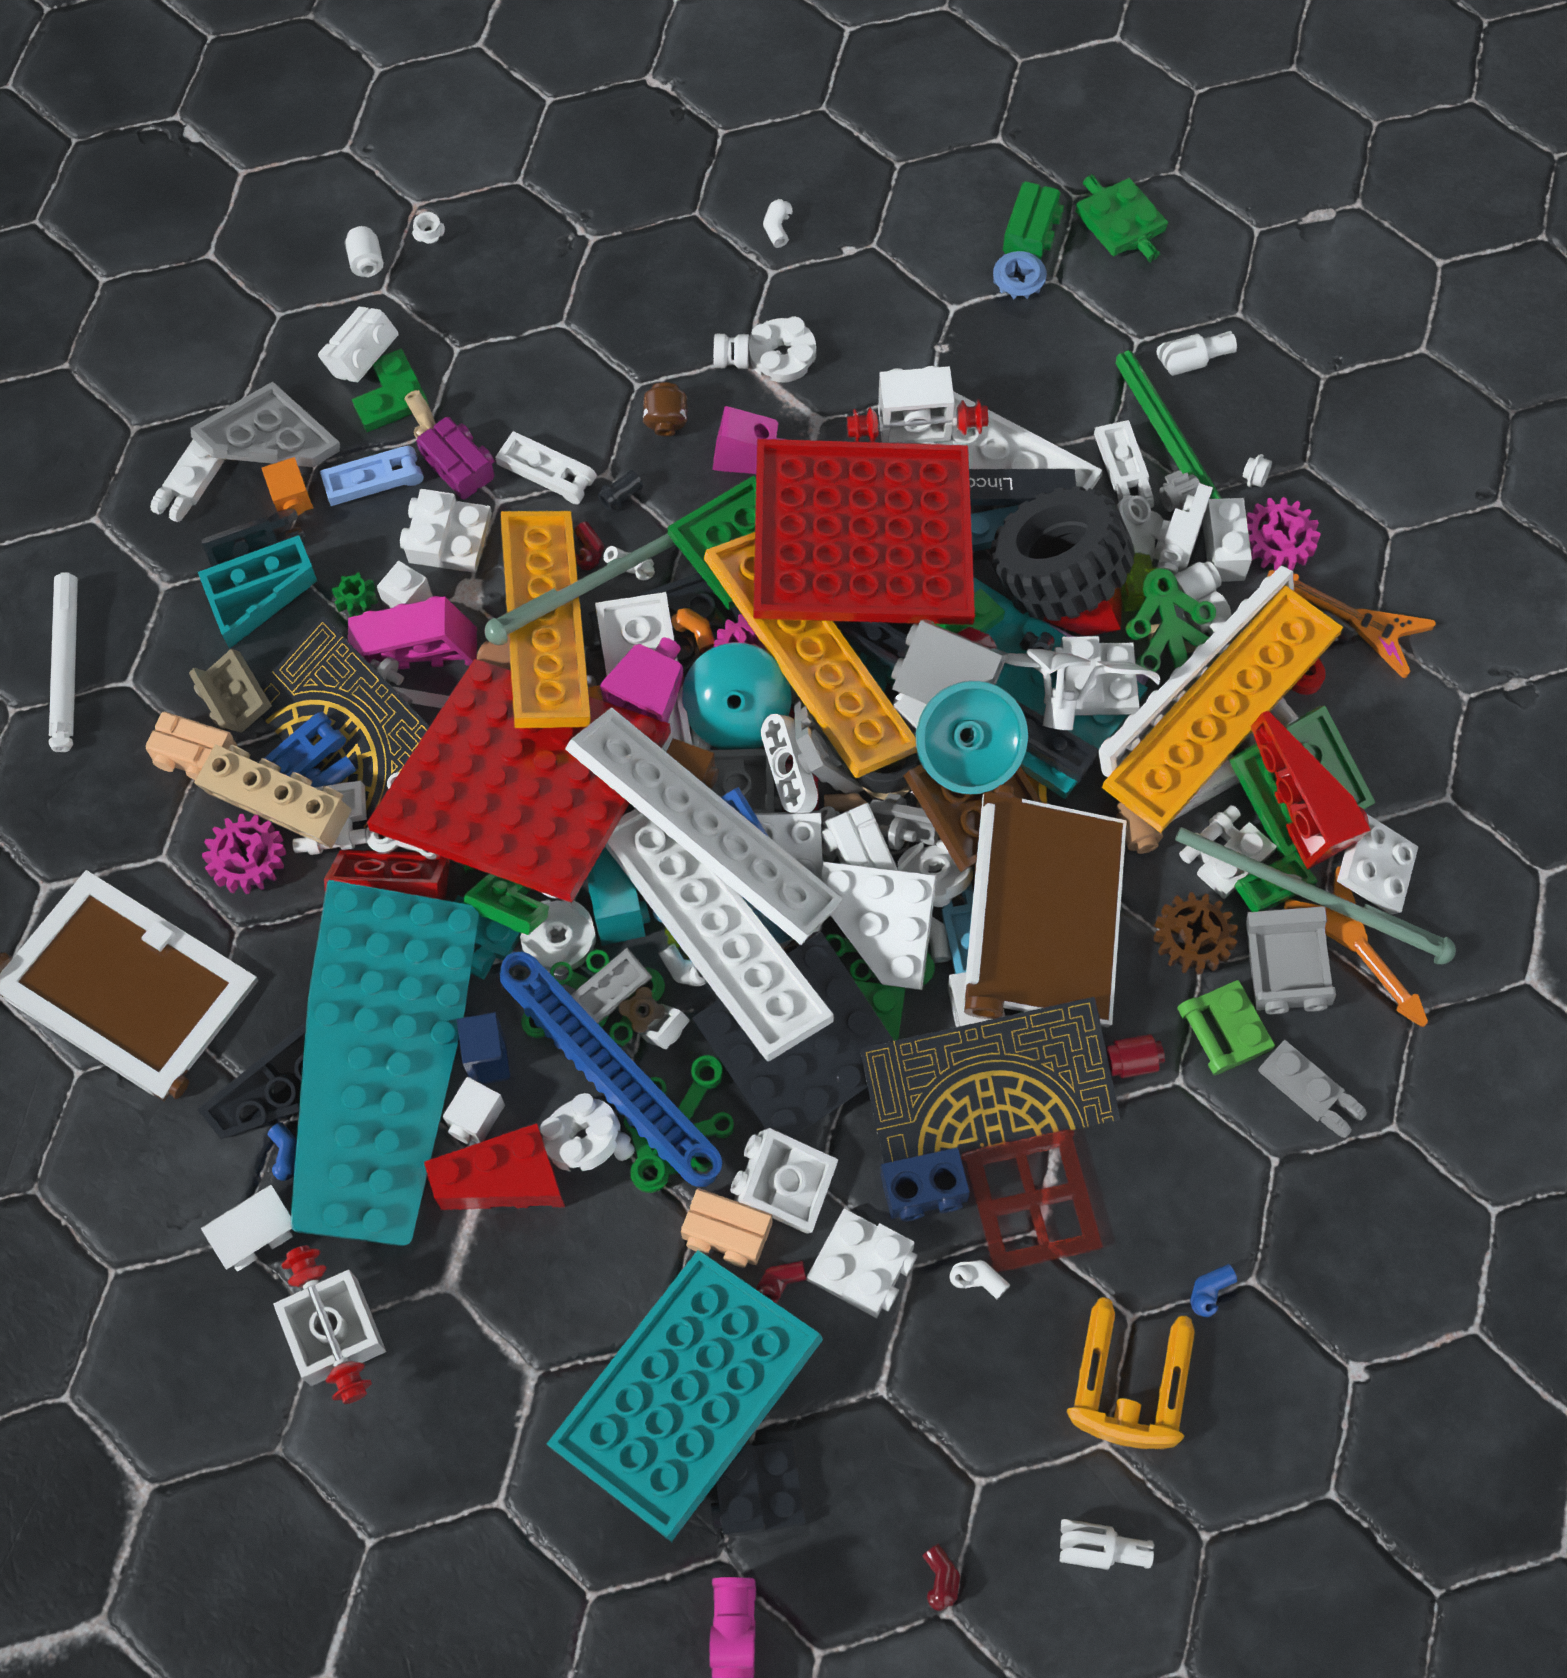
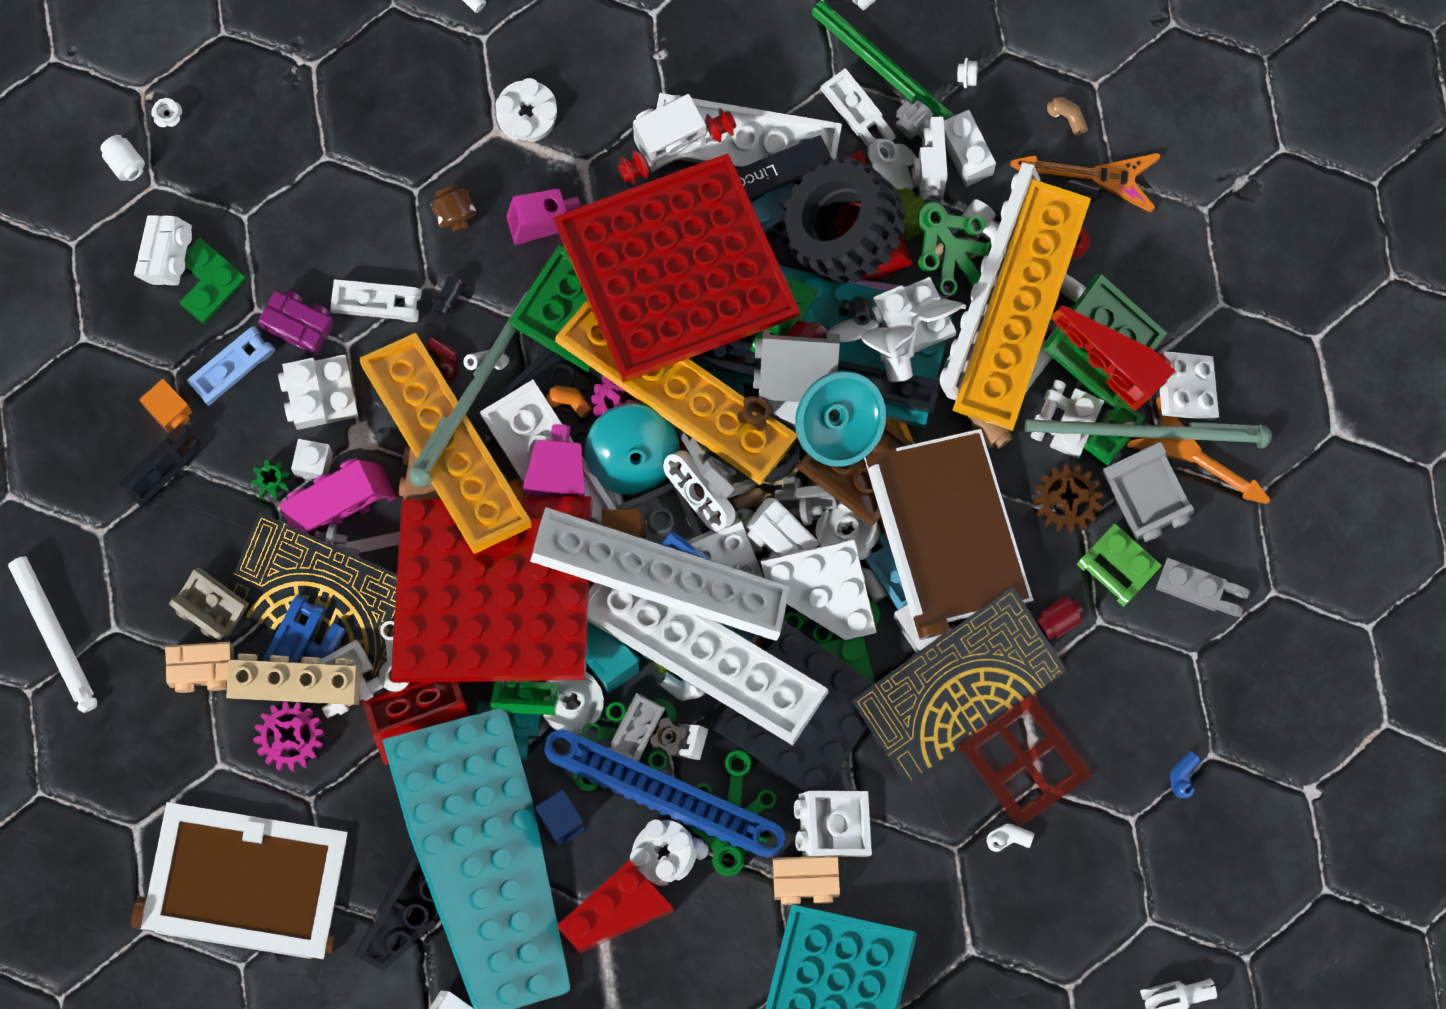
camera: 25 degrees left, 10 degrees up
(186, 482) = (74, 424): white hinge -> none
(256, 586) = (186, 505): teal wedge -> none
(265, 430) = (123, 361): light grey plate -> none
(285, 1160) = (443, 960): blue arm -> none
(420, 411) = (250, 294): tan arm -> none
(473, 1111) = (571, 869): white brick -> none
(723, 351) = (478, 132): white wheel -> none
(777, 1277) = (858, 900): dark red arm -> none
(862, 1263) = (918, 862): white plate -> none
(886, 694) = (758, 405): none -> reddish brown plate
(920, 1173) = (936, 777): dark blue brick -> none
(1124, 1426) = (1159, 904): light orange piece -> none
(1198, 580) = (957, 195): white brick -> none
(1283, 530) = (1018, 115): dark pink gear -> none
(1354, 546) = (1069, 110): none -> medium nougat arm

